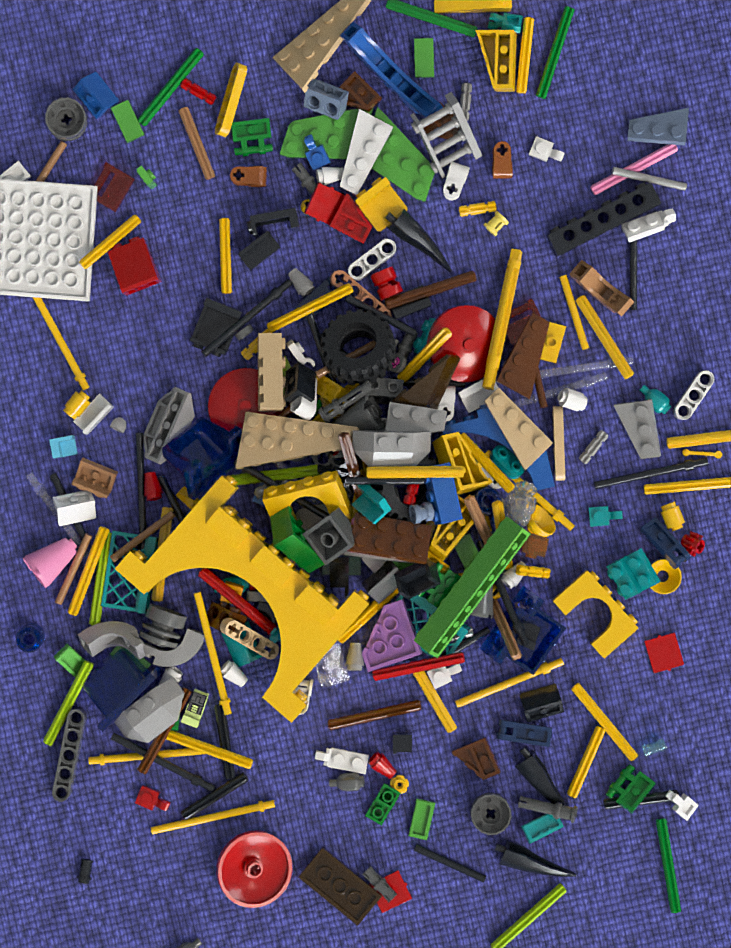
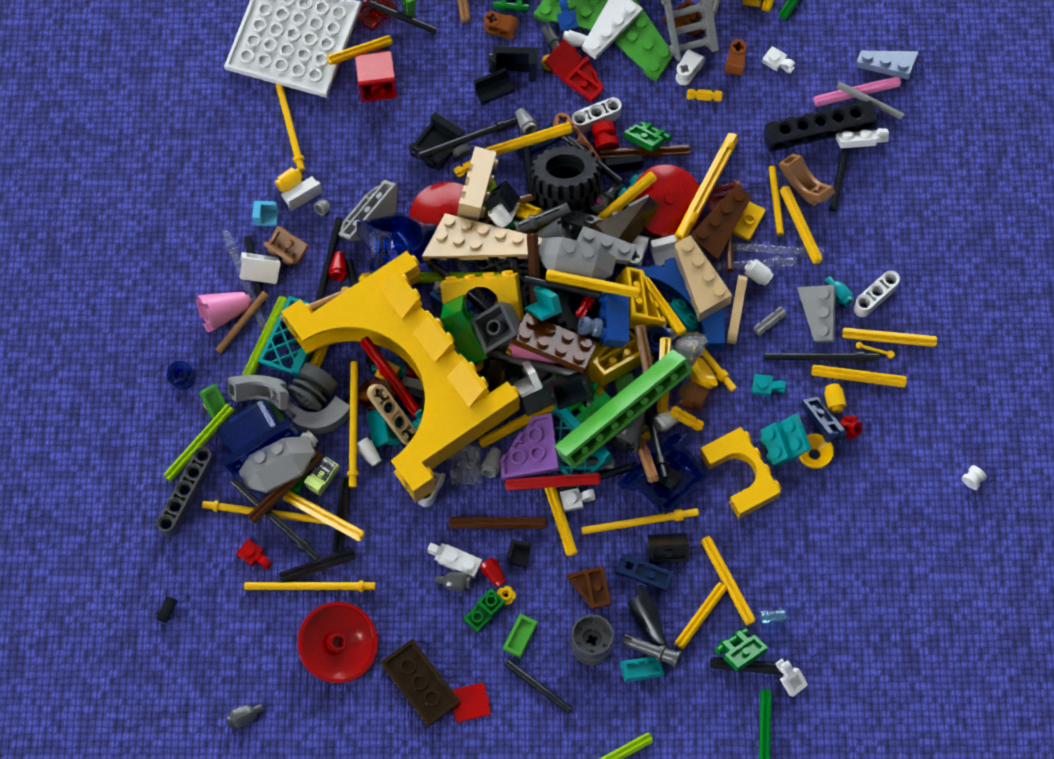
camera: 15 degrees right, 20 degrees down
(88, 571) = (255, 326): yellow axle -> none
(144, 191) = (403, 17): none -> black piece
(225, 255) = (461, 86): yellow axle -> none
(297, 351) = (507, 174): white plate -> none
(372, 578) = (530, 383): none -> white panel
(378, 202) = (615, 70): yellow bracket -> none
(379, 884) = (461, 688): dark grey pin -> none
(411, 232) = (639, 101): black piece -> none
(428, 278) = (647, 136): none -> green plate
(496, 223) = (712, 110): light yellow bush -> none
(523, 859) = (615, 700): black piece -> none
(664, 652) = (801, 528): red piece -> none

